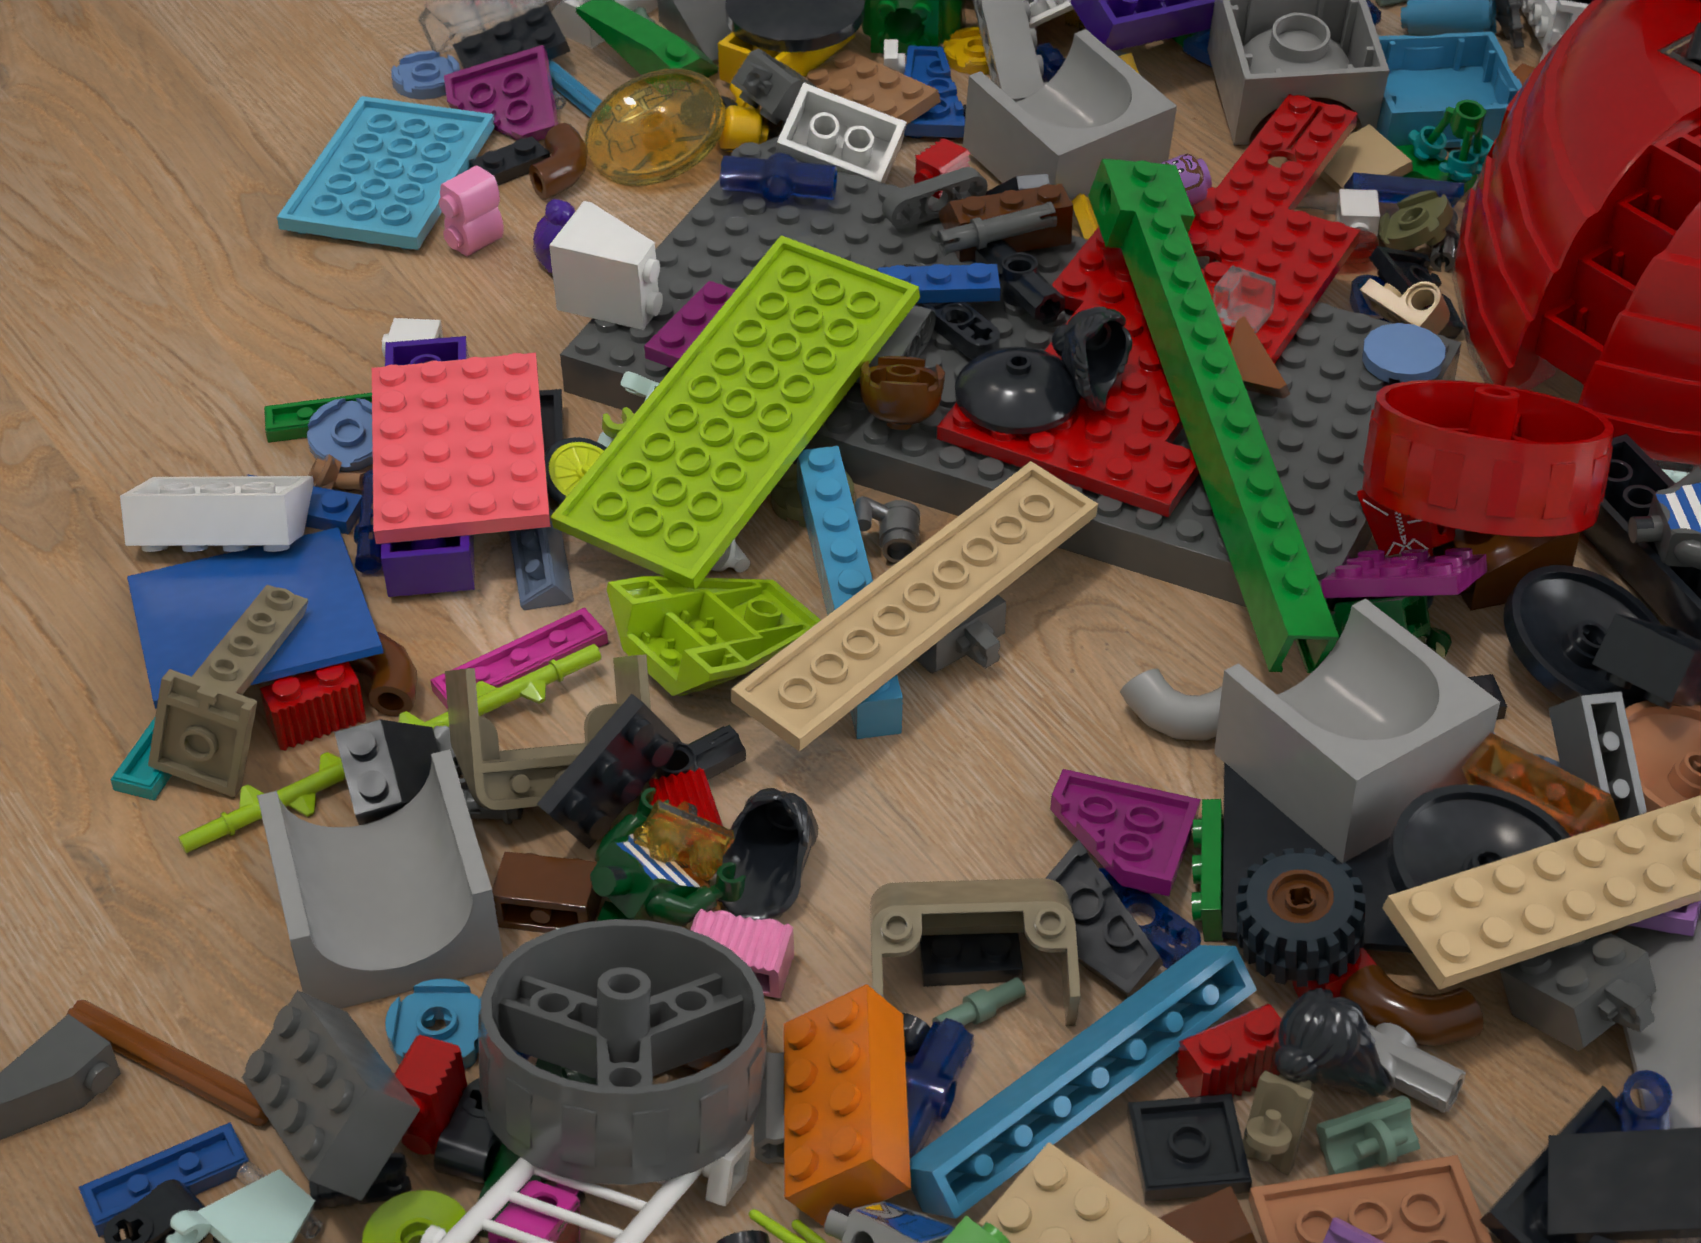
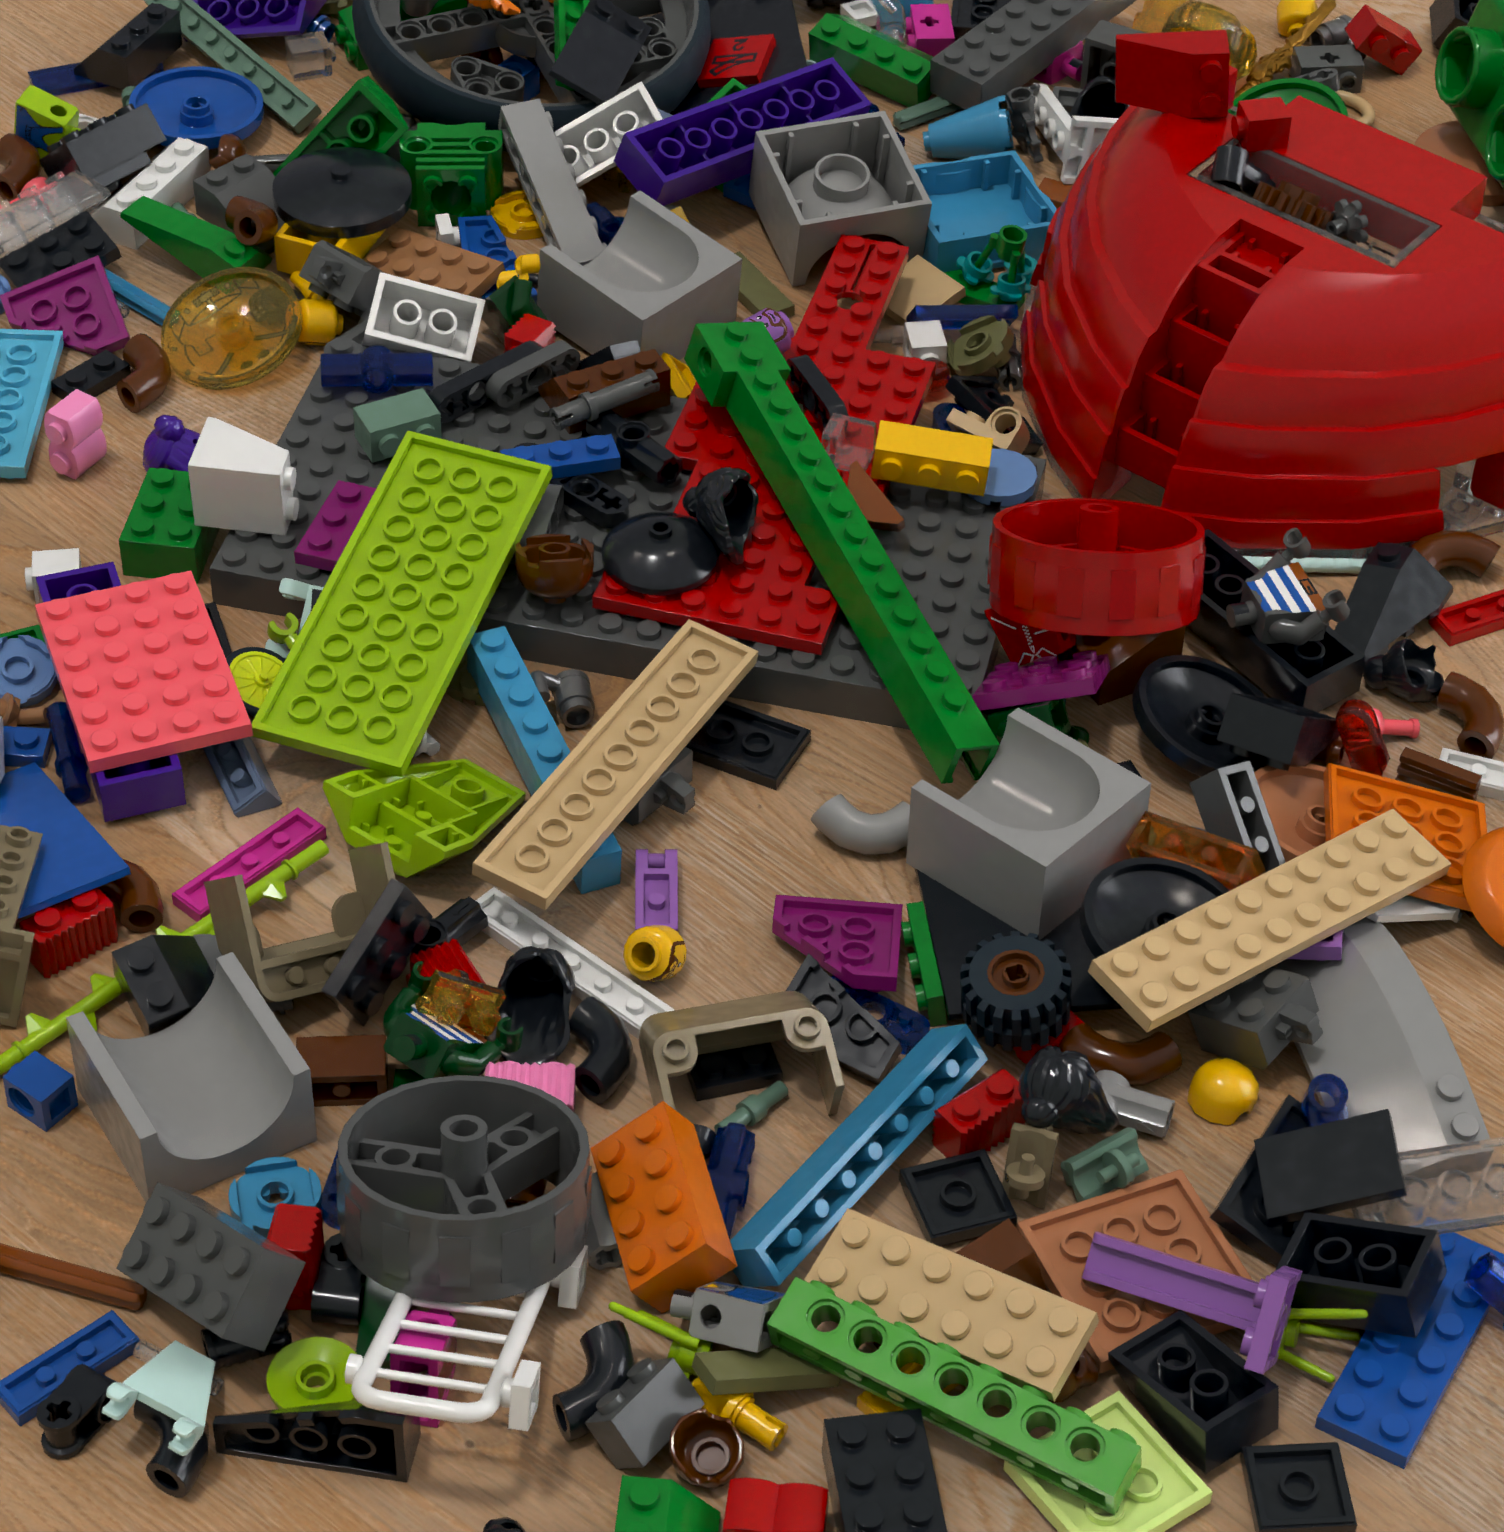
camera: 15 degrees left, 0 degrees up
(231, 869) = (40, 1090): none -> blue brick
(525, 315) = (162, 530): none -> green brick
(699, 27) = (251, 220): none -> reddish brown cylinder
(794, 220) = (384, 422): none -> sand green brick
(836, 916) = (608, 1049): none -> black cylinder
(841, 830) = (518, 928): none -> white tile
(846, 212) = (453, 396): none -> black beam
(913, 814) = (654, 953): none -> yellow head
(933, 752) = (656, 888): none -> medium lavender plate
(936, 119) = (512, 296): none -> dark green torso
(1072, 602) = (749, 744): none -> black tile
(1193, 139) = (759, 293): none -> olive tile
(1219, 240) = (814, 390): none -> black beam
(1331, 324) = (932, 458): none -> yellow brick
(1527, 1068) = (1223, 1091): none -> yellow hair

